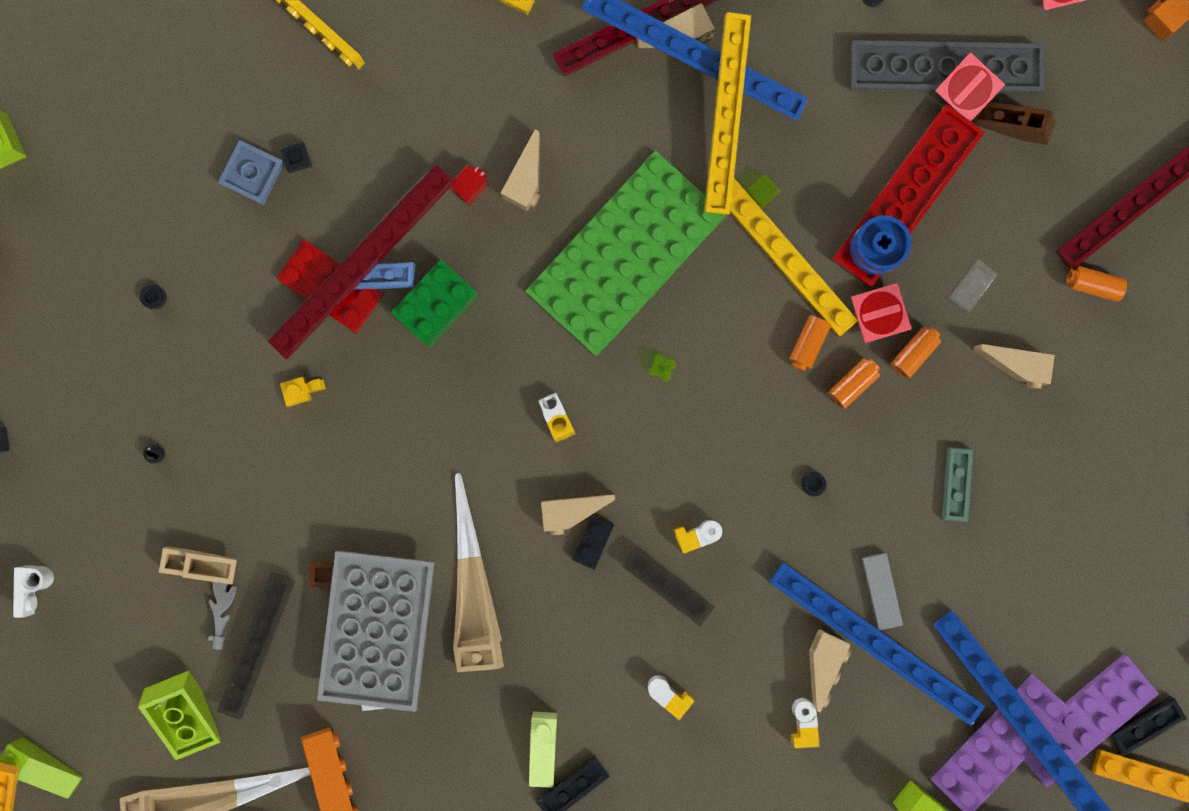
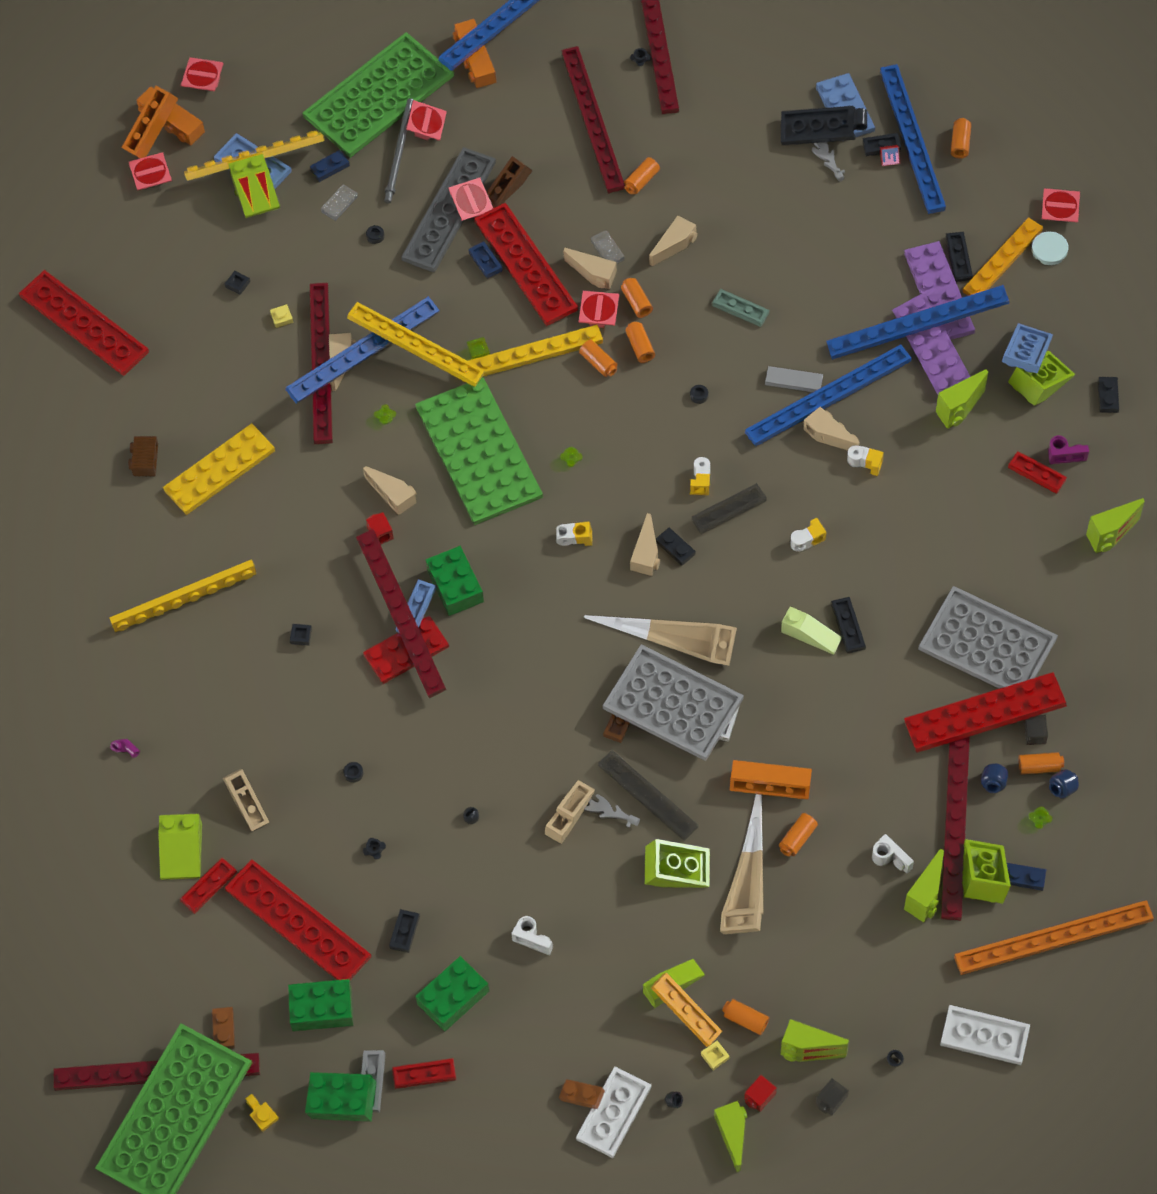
camera: 65 degrees left, 25 degrees down
(62, 360) = (372, 842): none -> black plate
(66, 189) = (245, 799): none -> tan slope
(79, 24) = (125, 745): none -> magenta arm
(251, 172) = (296, 668): sand blue plate -> none
(298, 390) = (472, 698): yellow plate -> none
(620, 124) = (385, 419): none -> clear neon green plate
(892, 144) = (485, 260): none -> dark blue plate
(894, 246) = (552, 287): blue wheel -> none
(935, 285) = (593, 268): none -> tan slope

